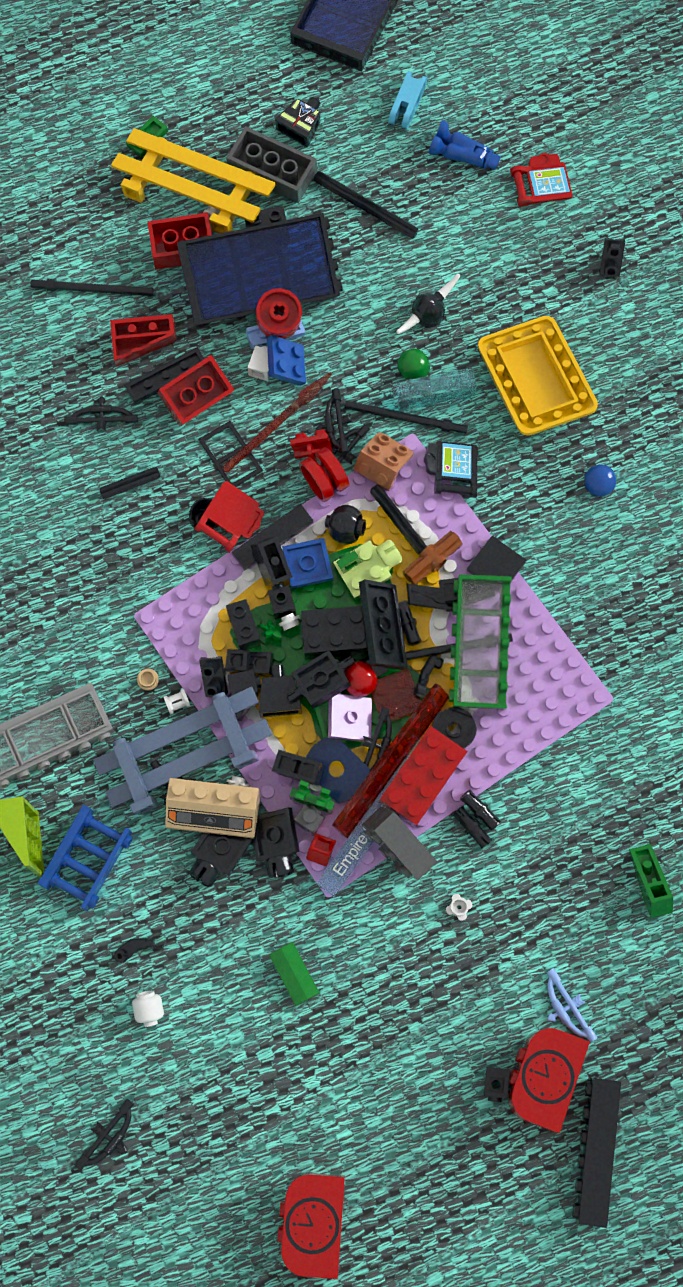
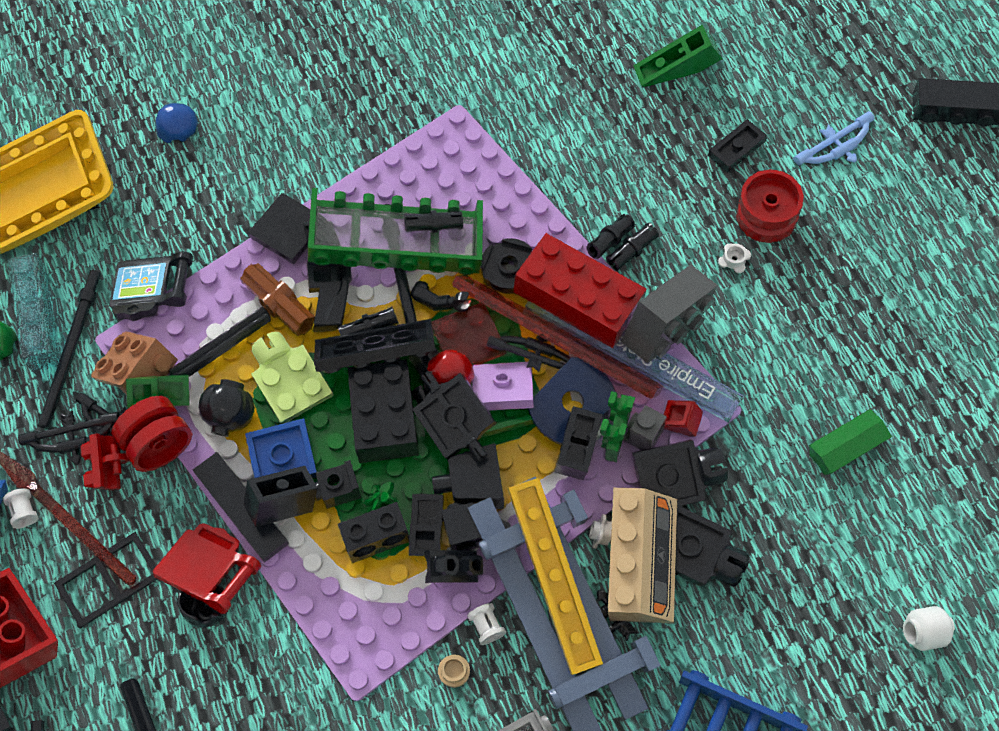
camera: 90 degrees left, 10 degrees down
(132, 946) = (843, 660): black arm -> none
(196, 741) = (555, 576): none -> yellow plate
(282, 394) = (20, 508): none -> white bush
(289, 621) = (367, 473): white plate -> none
(348, 561) = (282, 392): green plate -> none
(359, 475) = (170, 386): none -> green slope
(489, 670) = (433, 221): none -> black pin
(490, 947) = (769, 206): none -> red wheel
(502, 1076) = (942, 206): black brick -> none
(546, 1077) = (930, 150): red brick -> none
(564, 921) = (737, 145): none -> black plate

